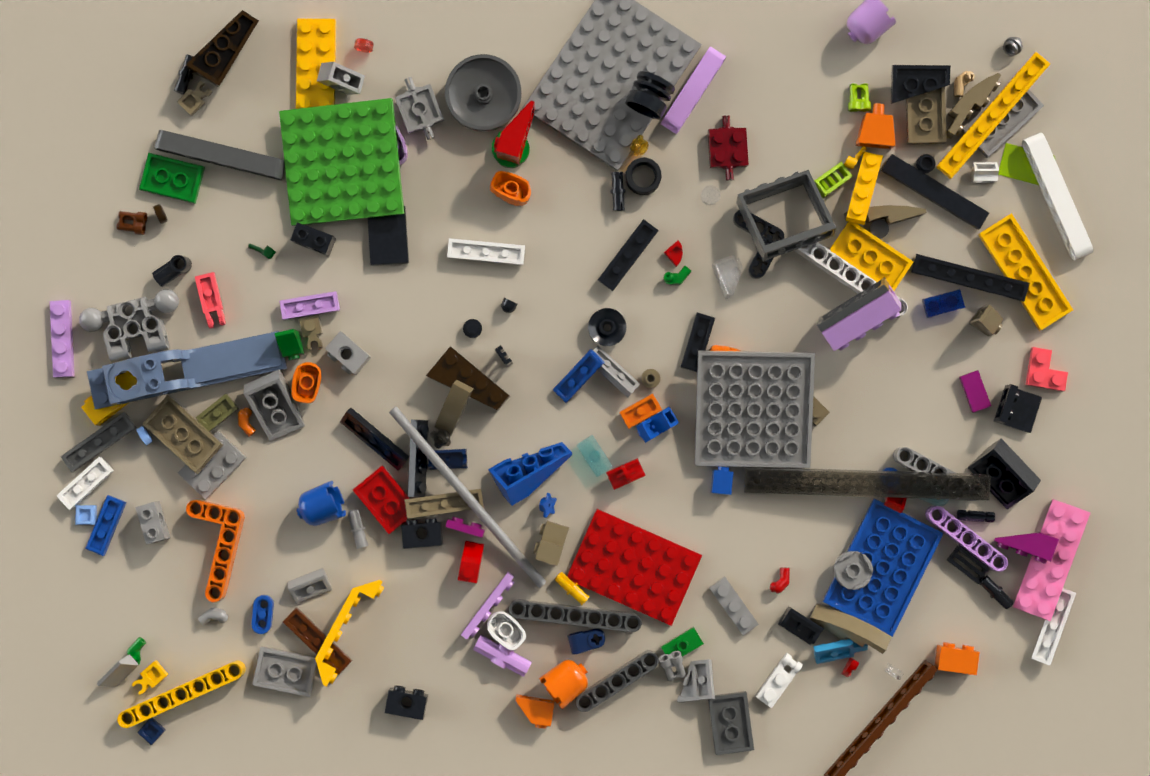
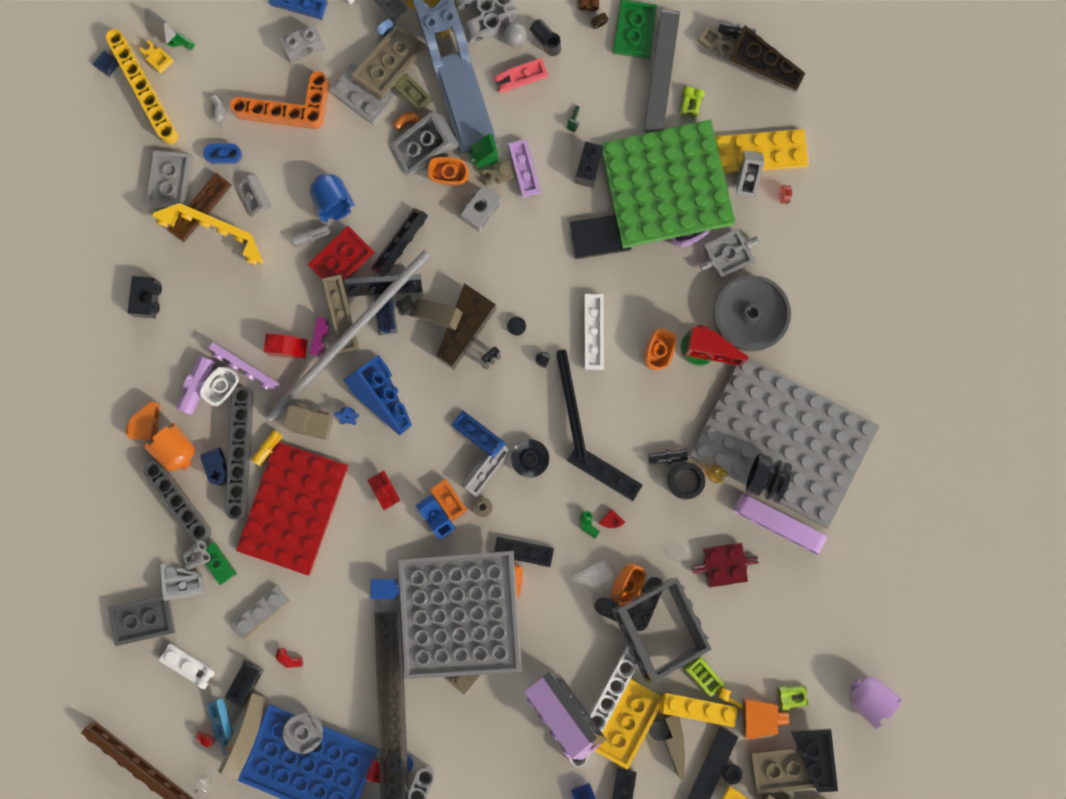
camera: 90 degrees right, 5 degrees down
(249, 125) = (696, 96): none -> lime piece
(434, 534) = (304, 286): black brick -> none
(556, 281) = (571, 405): none -> black axle
(594, 455) = (400, 458): clear light blue plate -> none
(738, 243) = (628, 583): none -> orange piece

